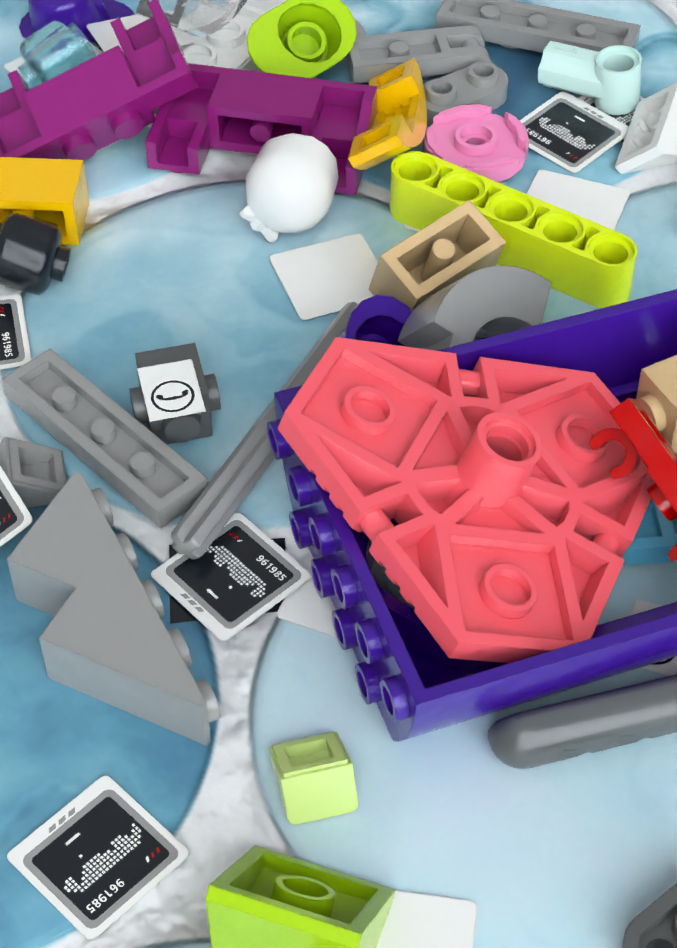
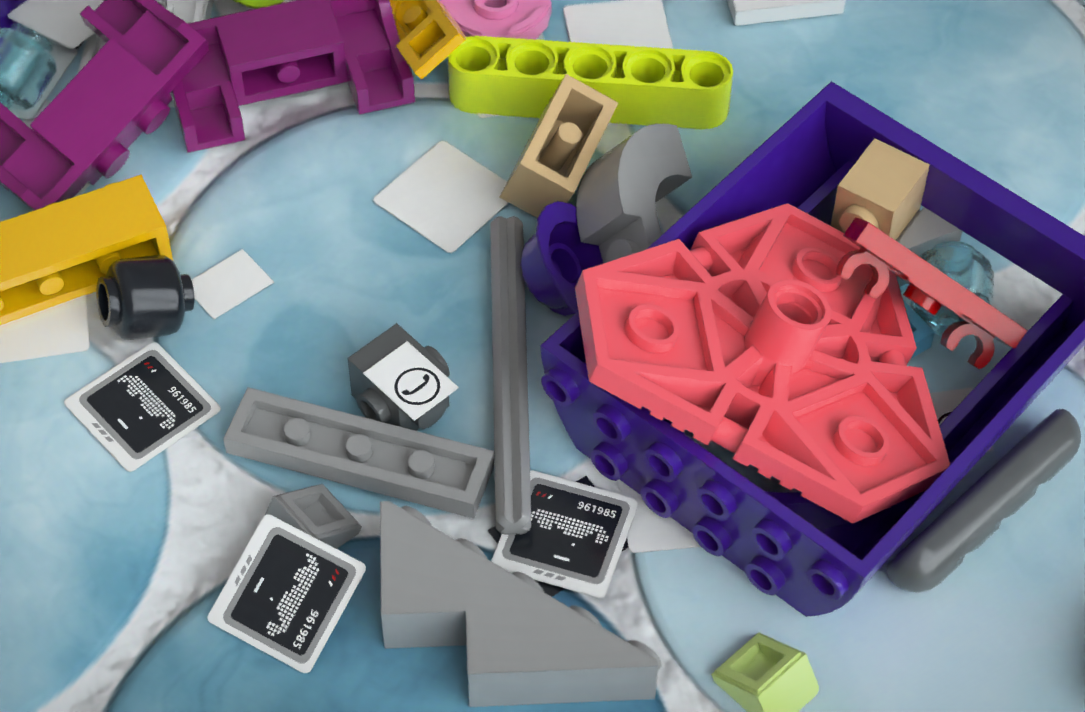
camera: 30 degrees left, 5 degrees up
(108, 274) = (229, 283): none -> white sticker
(289, 185) = (359, 120): white helmet -> none

